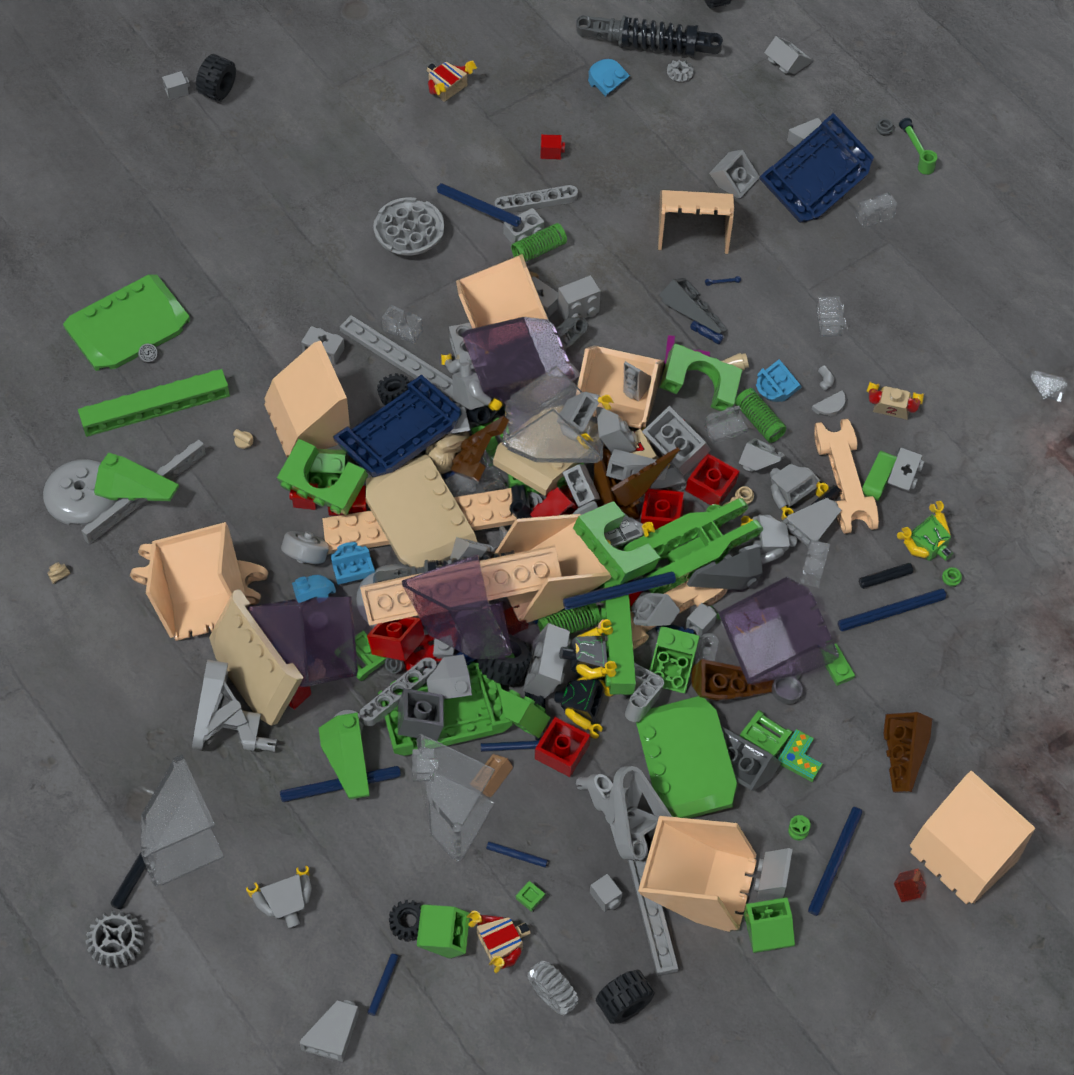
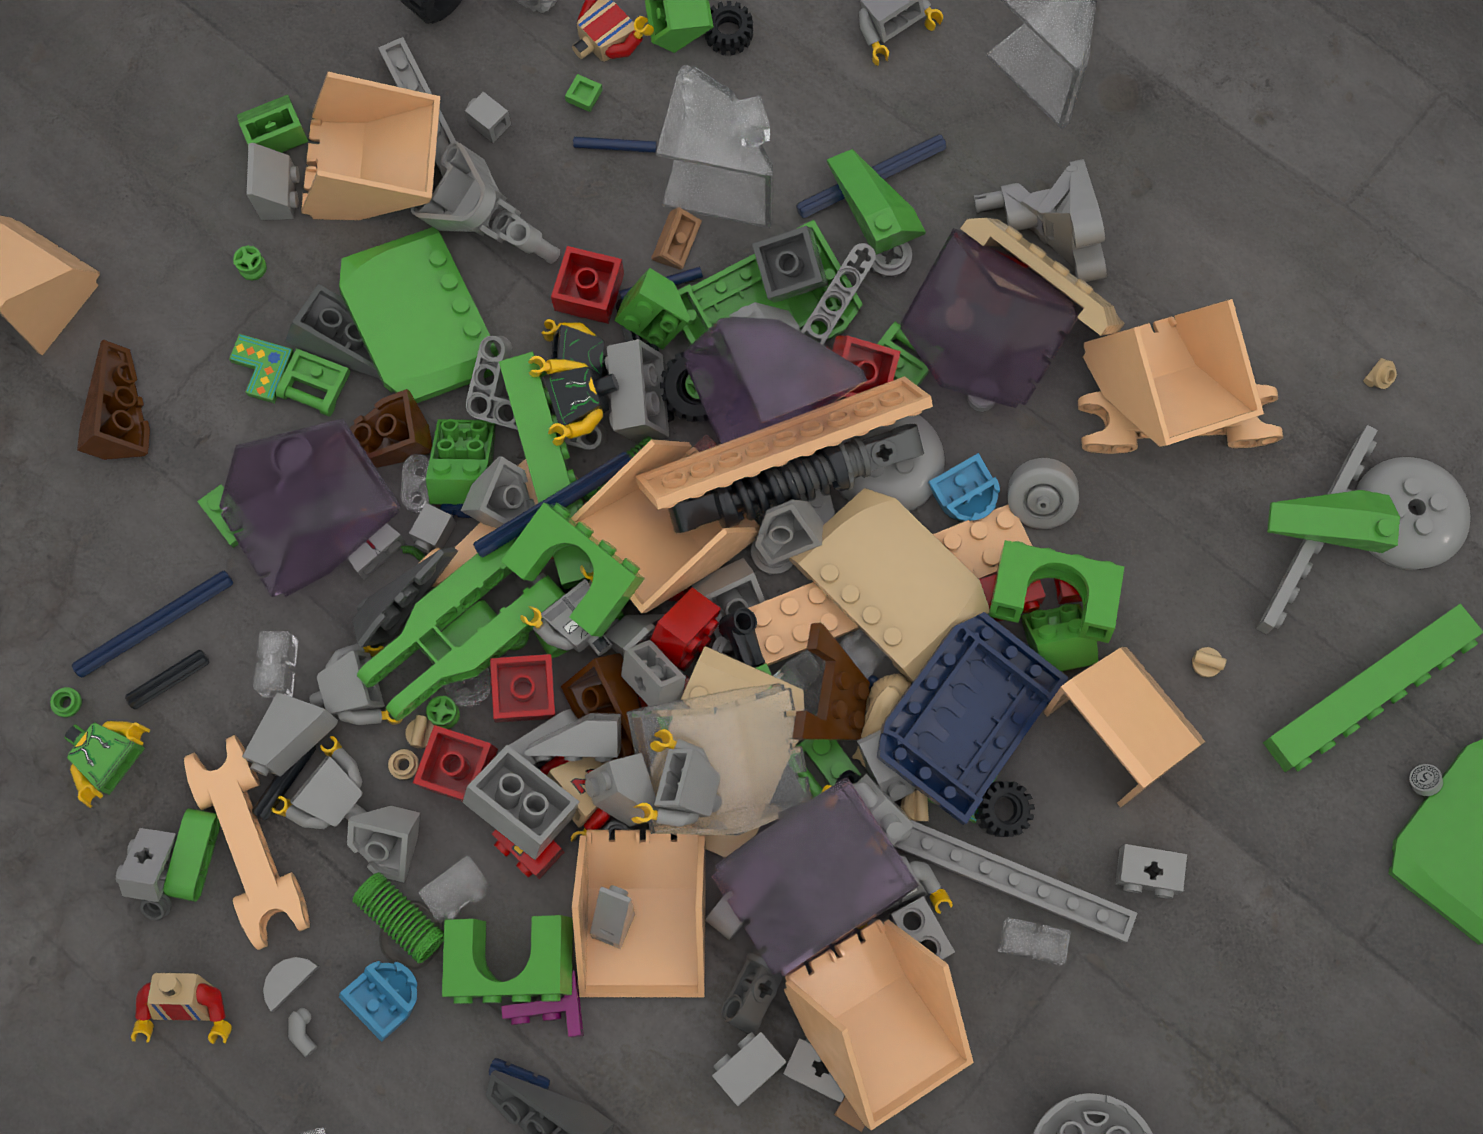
camera: 170 degrees right, 15 degrees up
(311, 587) = (1006, 424): dark azure slope -> none
(638, 484) = (558, 707): reddish brown wedge -> none
(738, 360) = (458, 1020): tan cone -> none
(835, 861) = (197, 236): dark blue axle -> none
(910, 885) = (94, 222): clear red panel -> none

